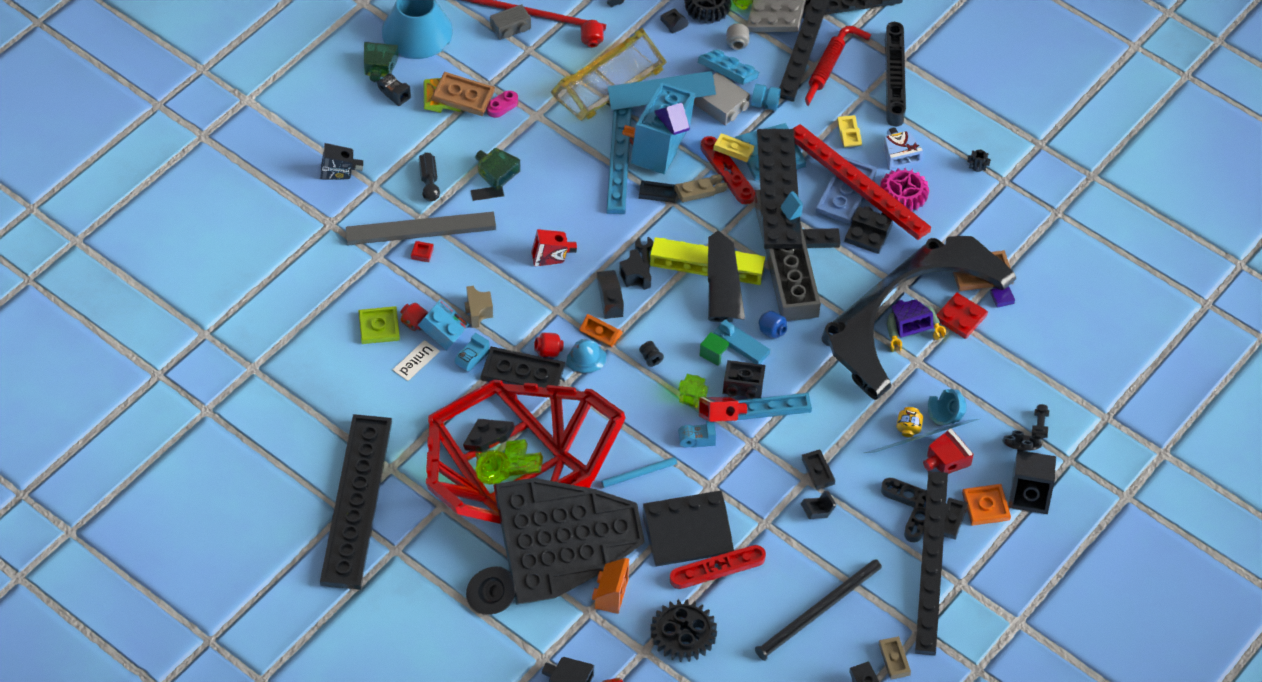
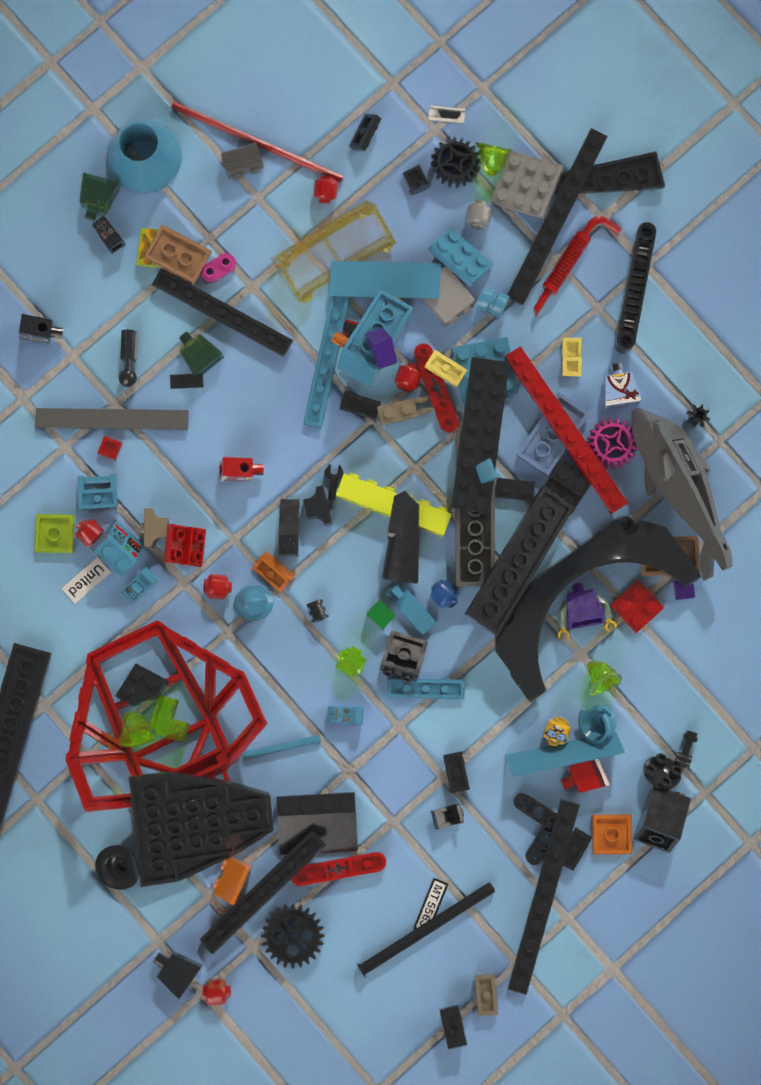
camera: 10 degrees right, 30 degrees up
(417, 289) = (98, 498): none -> dark azure plate
(510, 315) = (184, 545): none -> red slope
(513, 134) = (222, 312): none -> black plate
(521, 368) = (188, 610): black tile -> none
(644, 593) = (262, 892): none -> black plate
(699, 163) = (408, 377): none -> red head
(720, 409) = (372, 693): red torso -> none
(819, 586) = (432, 902): none -> sticker
(839, 281) = (519, 561): none -> black plate
(944, 372) = (601, 677): none -> clear neon green piece
(970, 196) = (682, 480): none -> dark grey animal

